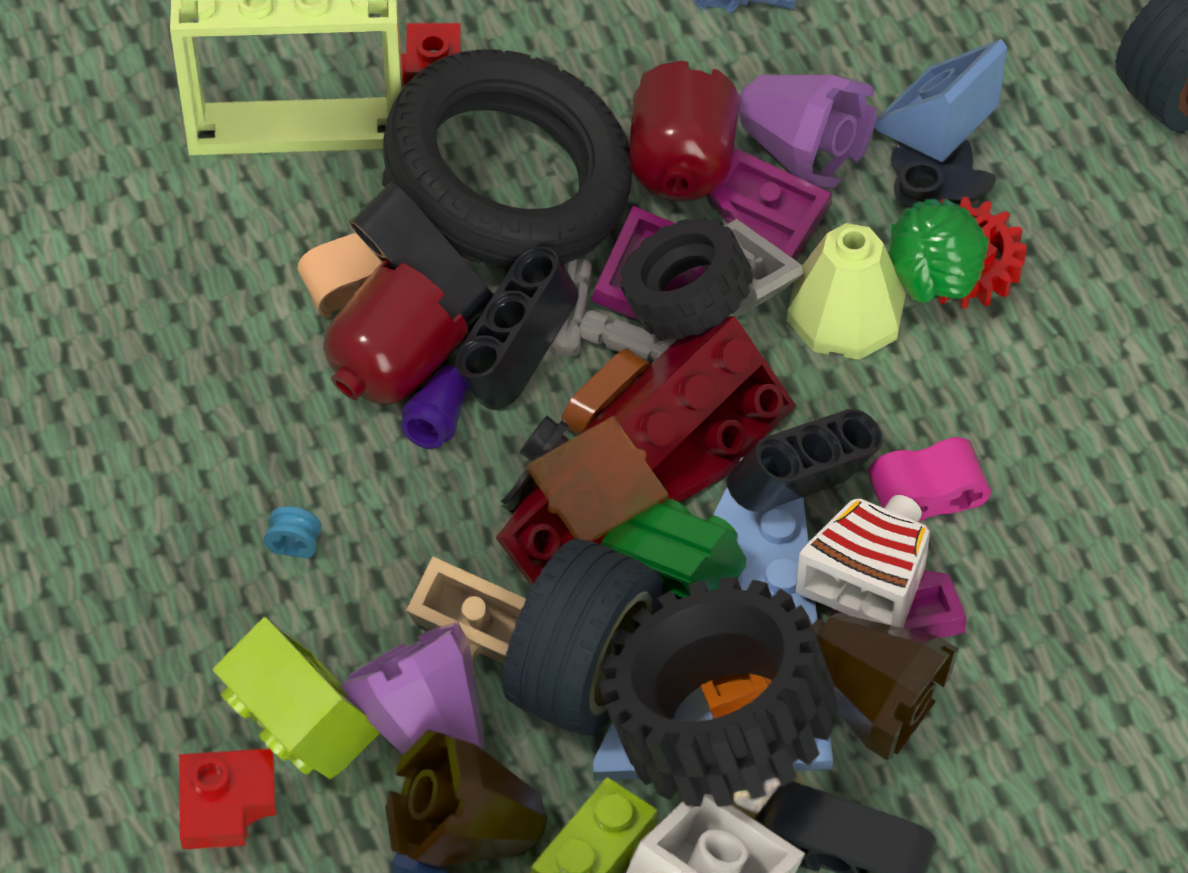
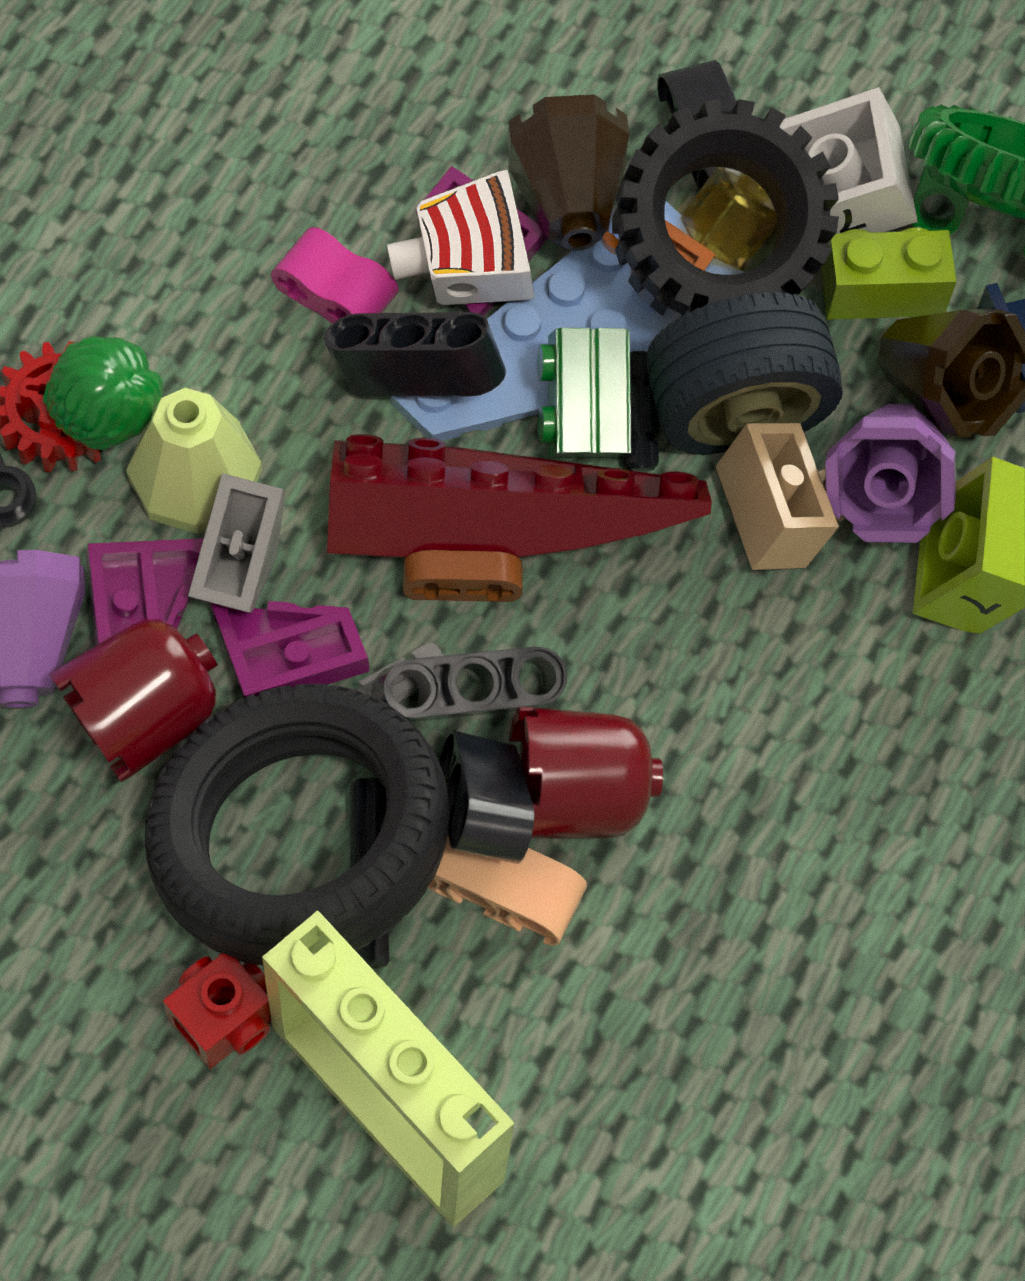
camera: 135 degrees left, 10 degrees up
(292, 532) = (824, 713): dark azure bush -> none
(435, 409) = (603, 693): dark purple cone -> none
(543, 440) = (597, 557): black plate -> none
(597, 480) = (595, 466): clear orange piece -> none
(622, 335) = (383, 608): light grey axle -> none
(698, 304) = (365, 545): black tyre -> none

